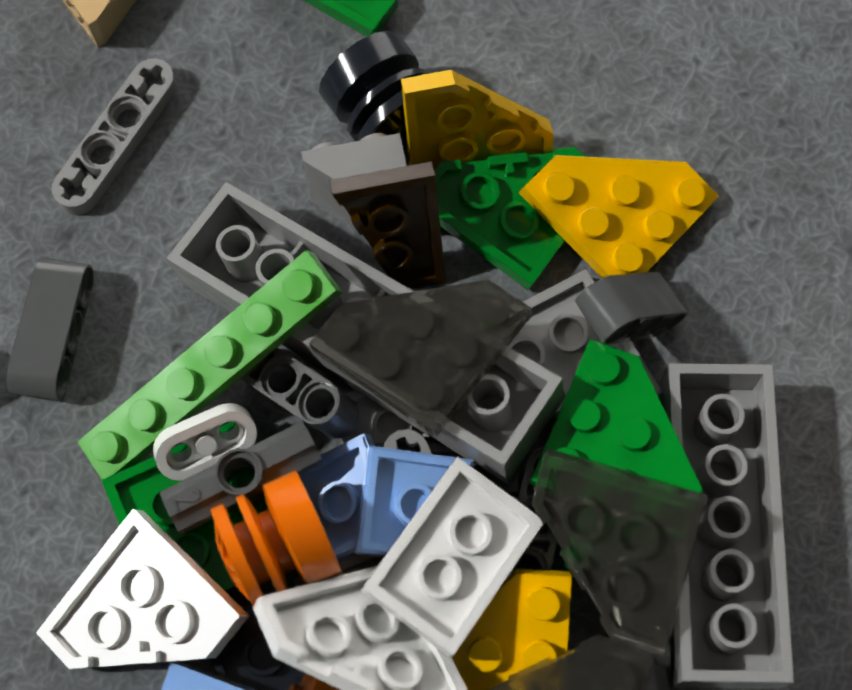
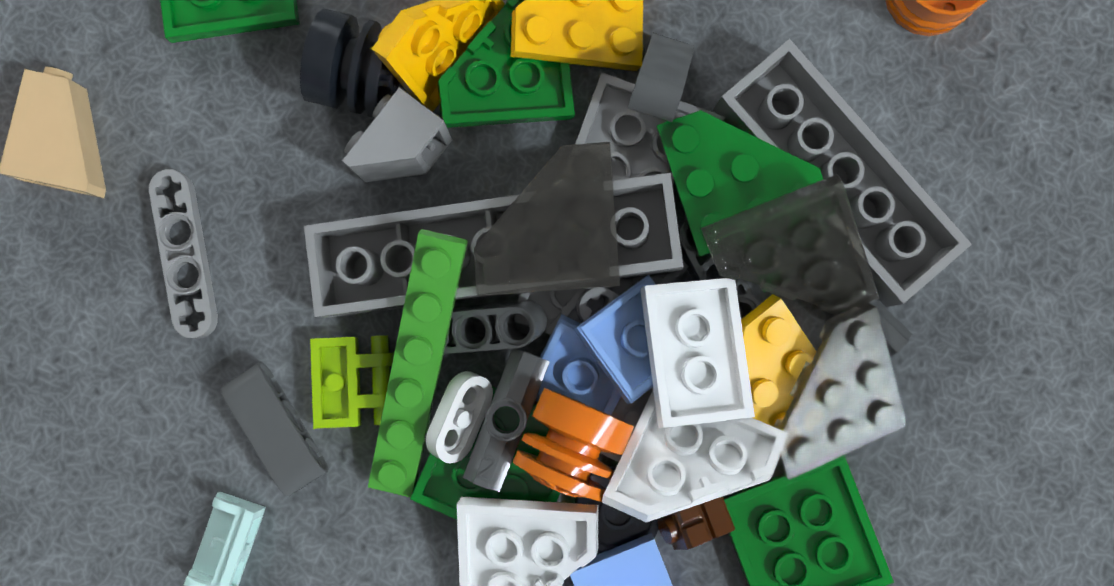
camera: 45 degrees left, 15 degrees up
(137, 333) = (337, 380): none -> lime plate
(398, 219) = (453, 151): dark brown wing -> none

